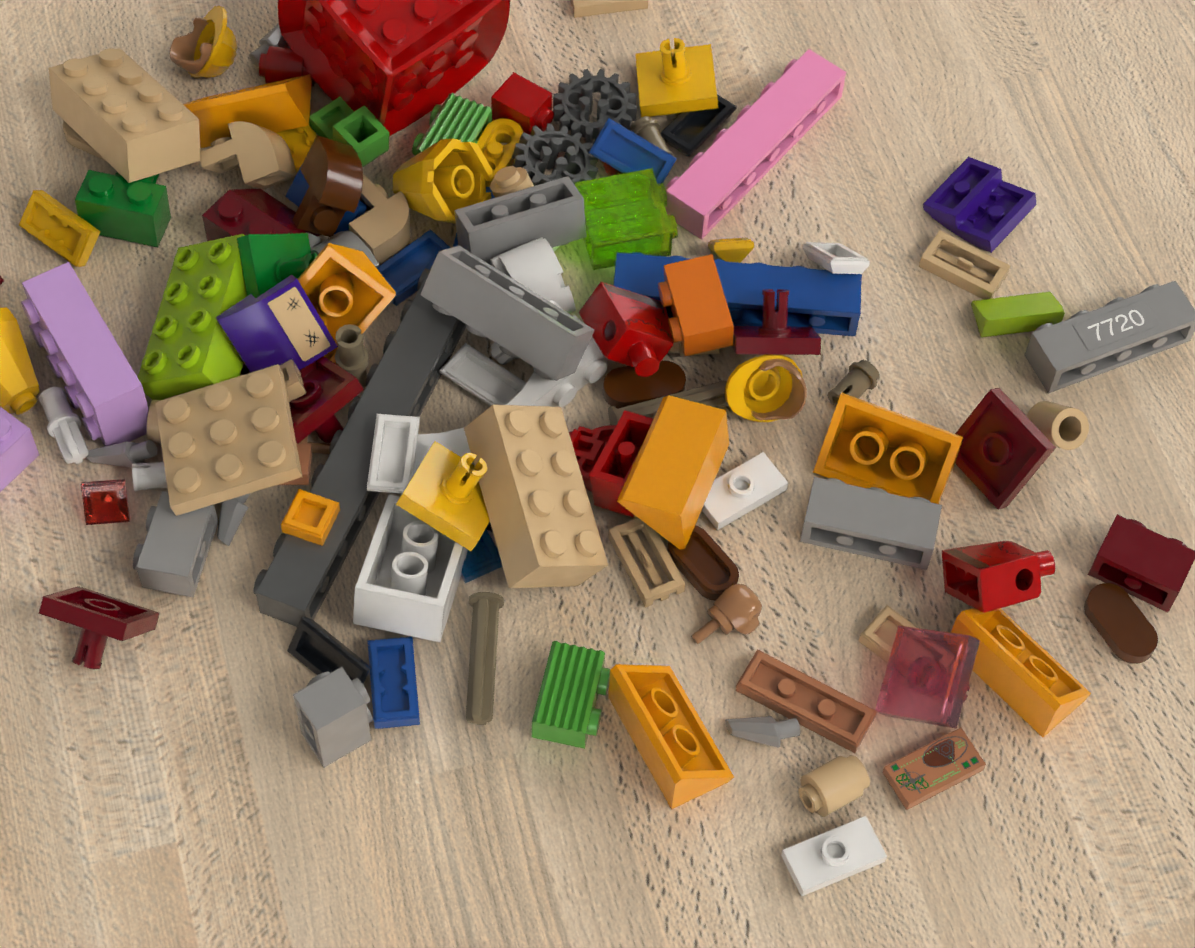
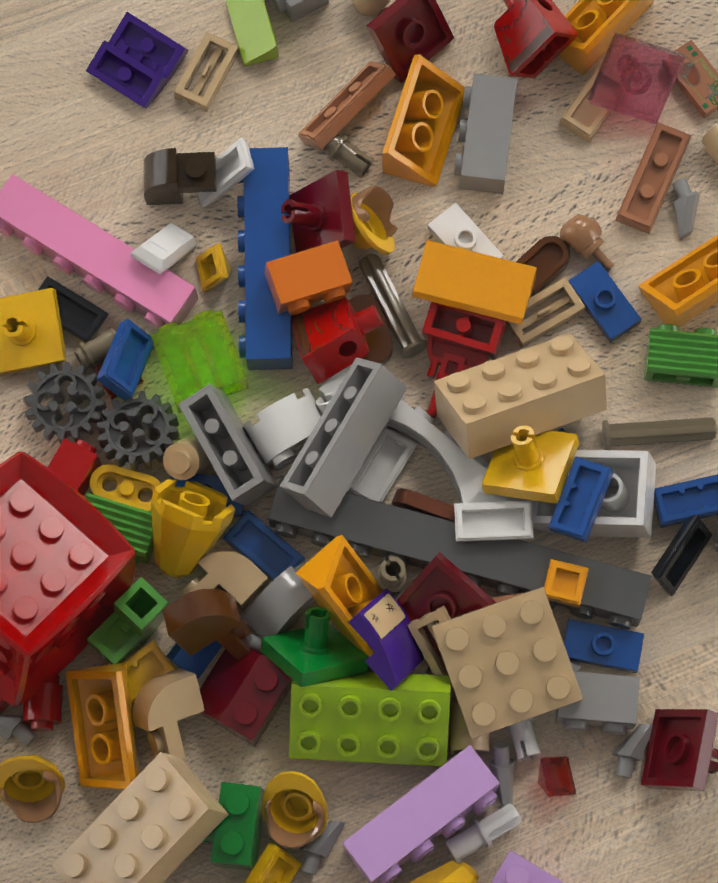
camera: 90 degrees left, 15 degrees up
(95, 285) = (320, 847): none -> light grey bar
(119, 582) = (632, 750): none -> light grey bar
(123, 255) = (294, 809): none -> yellow piece
(243, 560) = (603, 645): none -> blue plate
(397, 530) = (581, 499): none -> blue plate
(433, 404) = (423, 504): none -> copper tile
(652, 625) = (605, 302): none -> blue plate
(752, 197) = (164, 248): none -> white tile
(835, 215) = (173, 173): none -> dark brown brick
(913, 385) = (346, 105): none -> nougat tile

